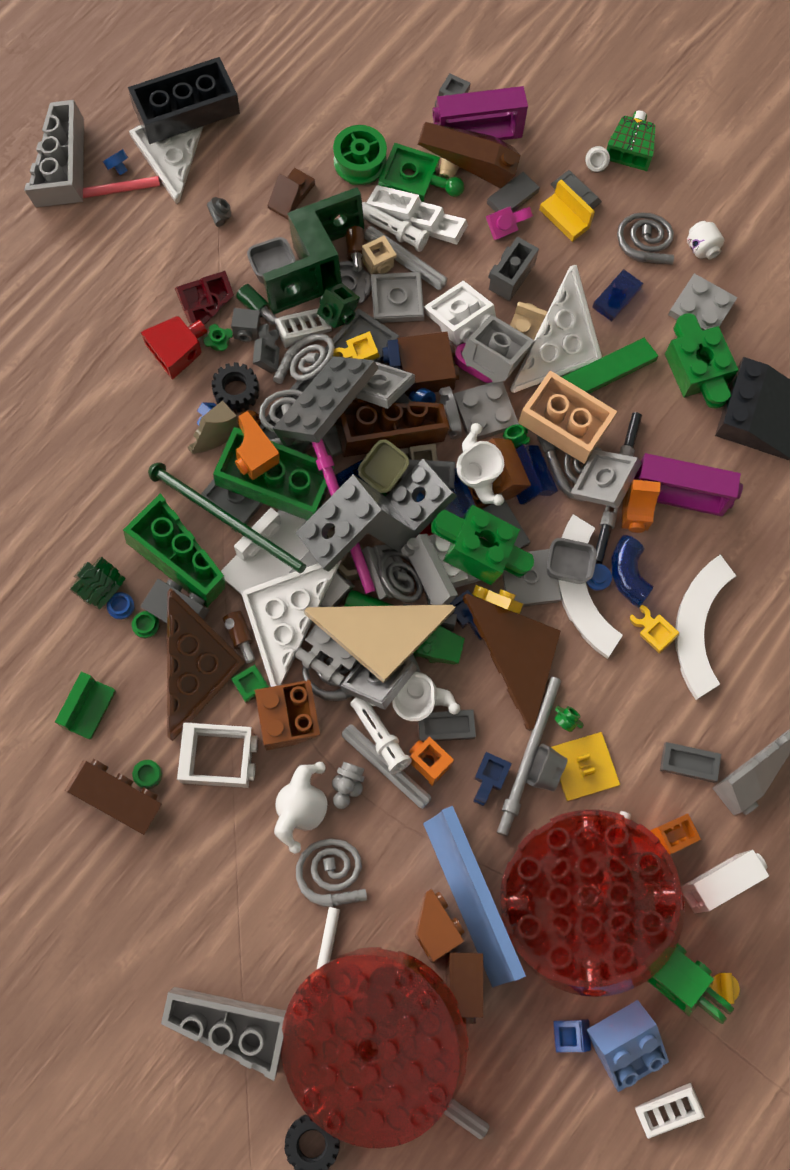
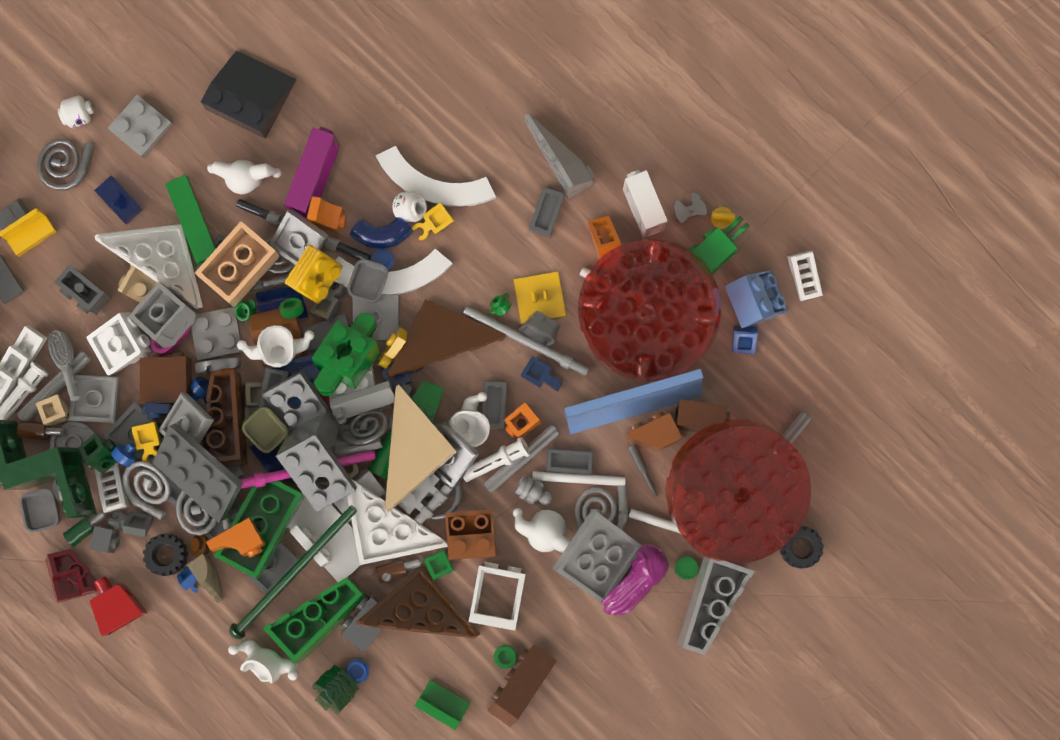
camera: 75 degrees left, 10 degrees up
(123, 502) = (264, 662): none -> white piece
(145, 625) = (377, 650): green plate -> none
(218, 344) = (119, 564): green plate -> none
(261, 935) = (646, 571): none -> magenta hair
(272, 990) = (686, 568): none -> green piece
(274, 871) = (597, 556): none -> light grey plate
(339, 329) = (124, 454): none -> blue tile
(370, 840) = (579, 478): none -> white bar
(389, 825) = (569, 461): none -> dark grey tile
(393, 916) = (635, 454): none -> dark grey piece
(437, 260) = (63, 357): none -> light grey piece
(504, 221) = (30, 290): dark pink plate -> none
(526, 480) = (291, 308): none -> green tile
(538, 522) = (329, 306): none -> dark grey plate
(569, 498) = (314, 274): none -> yellow brick
(667, 598) = (409, 206): none -> white head
(670, 413) = (243, 175): none -> white piece
(689, 361) = (196, 138): green brick -> none
(730, 954) = (697, 208): none -> light grey piece

